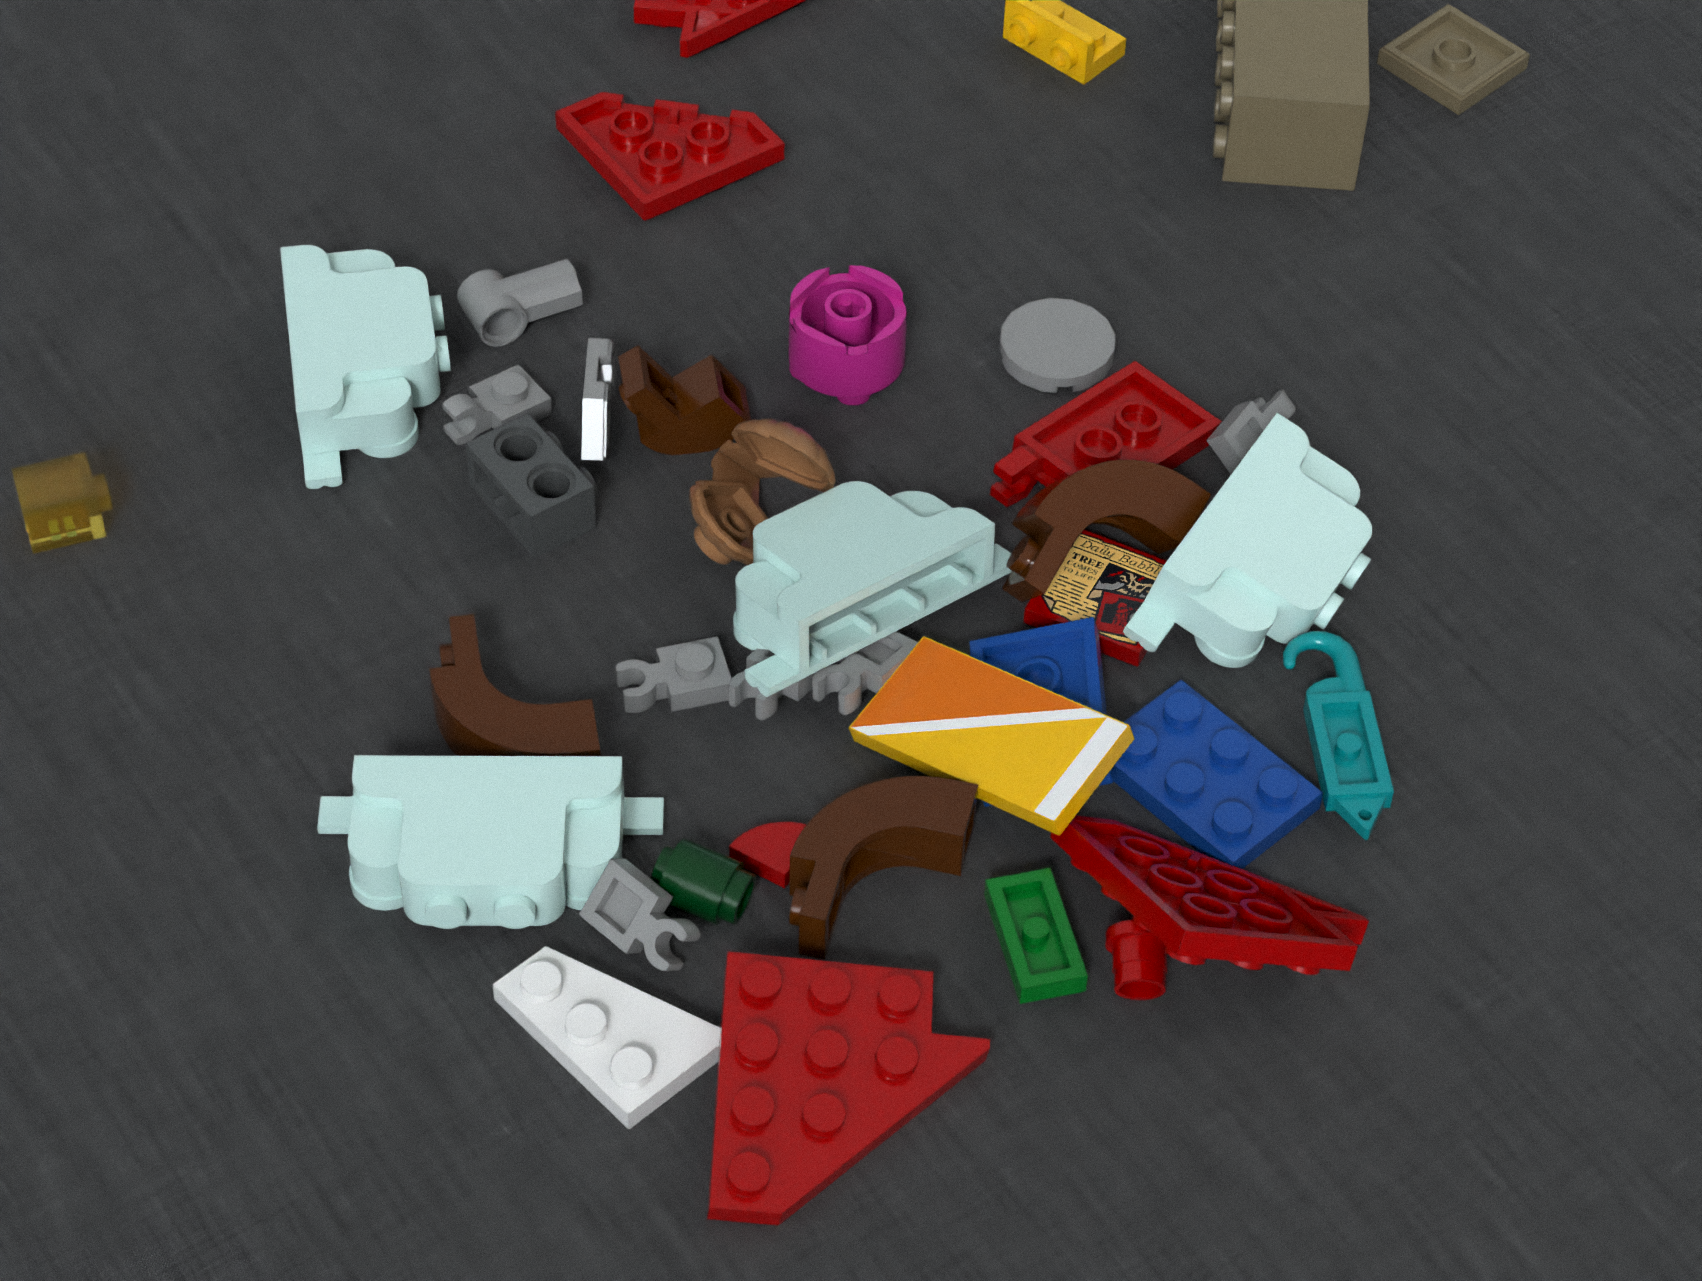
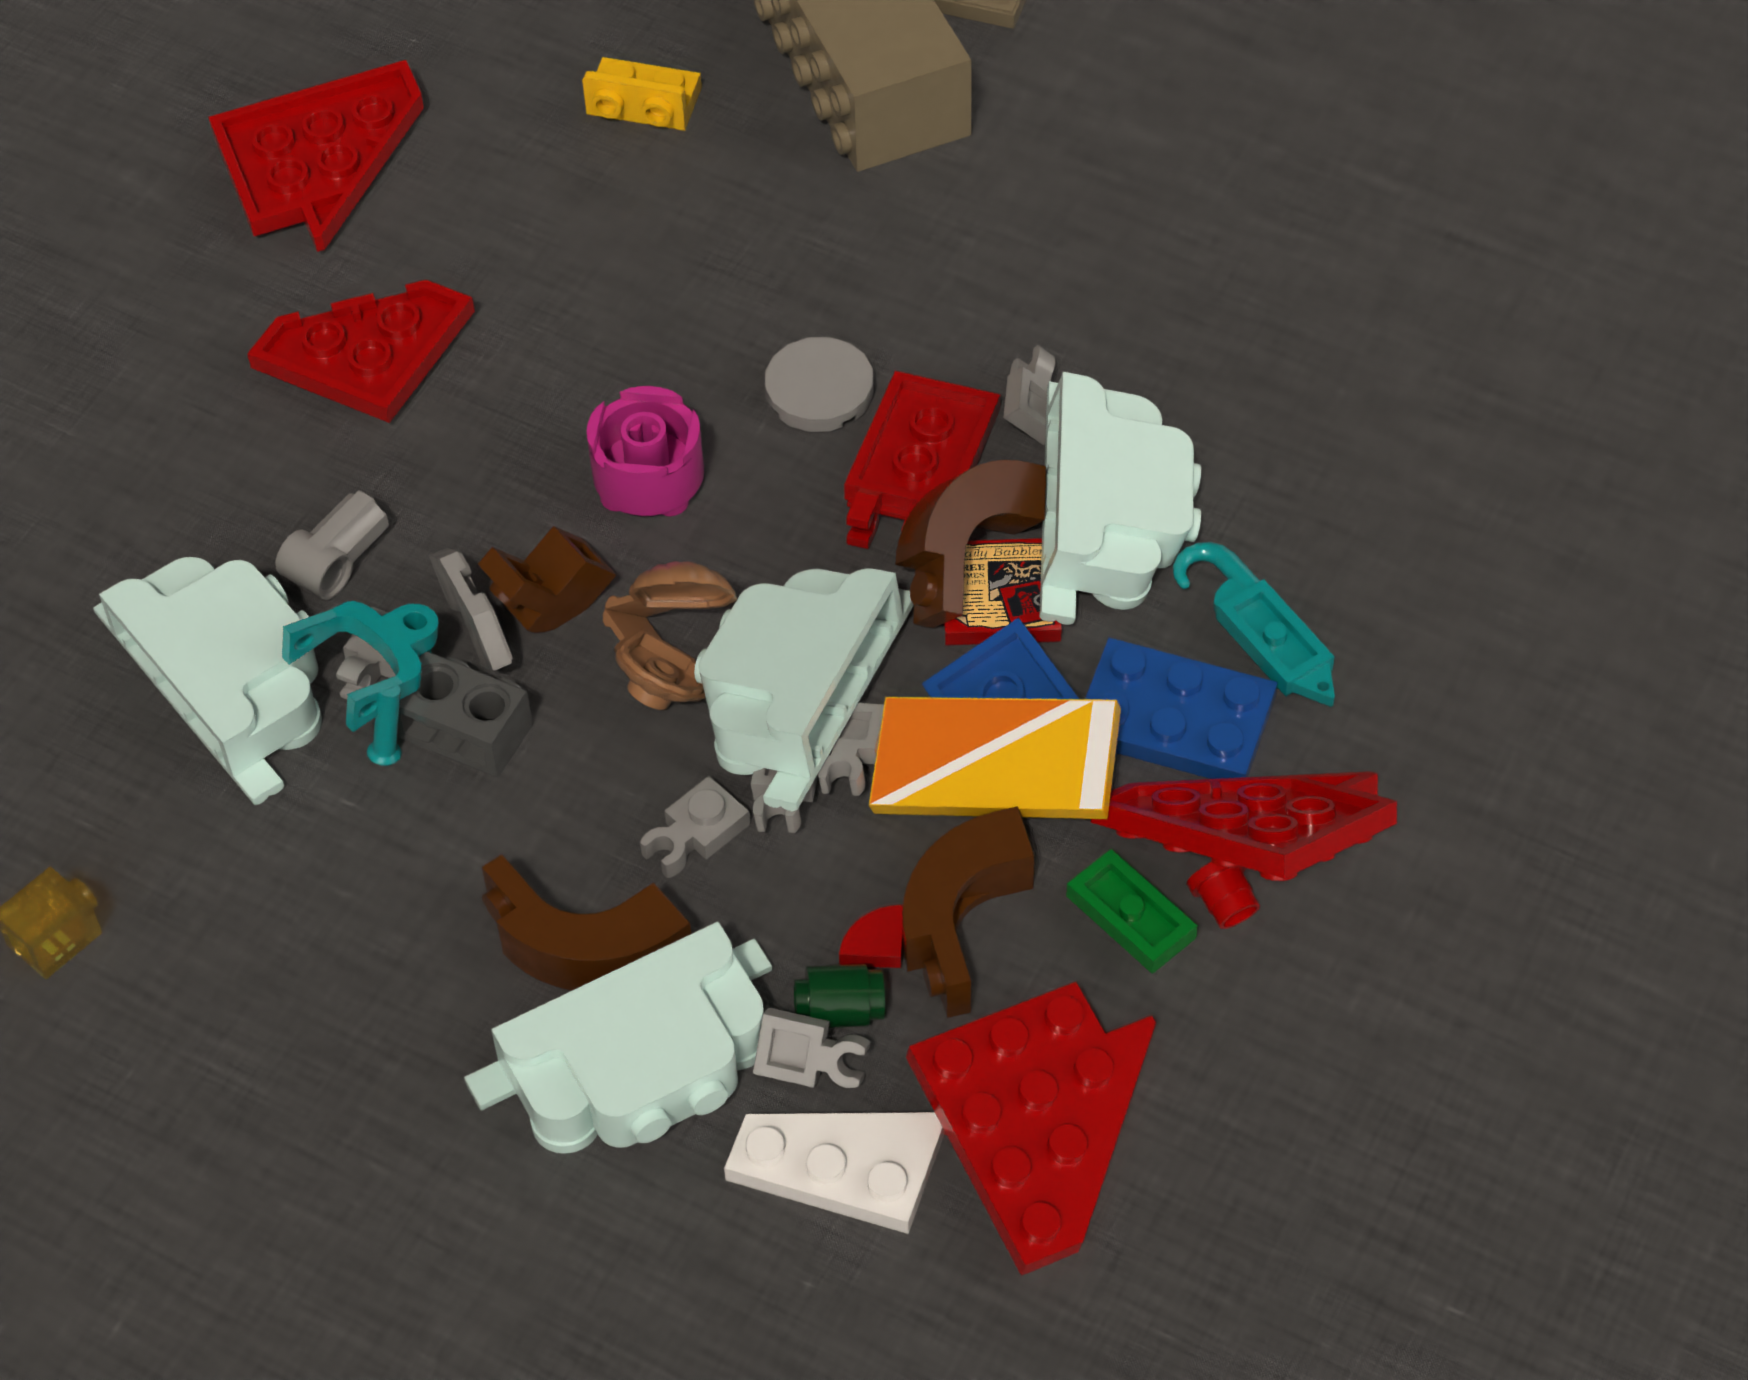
camera: 25 degrees left, 5 degrees up
(508, 393) = (398, 637): none -> teal piece

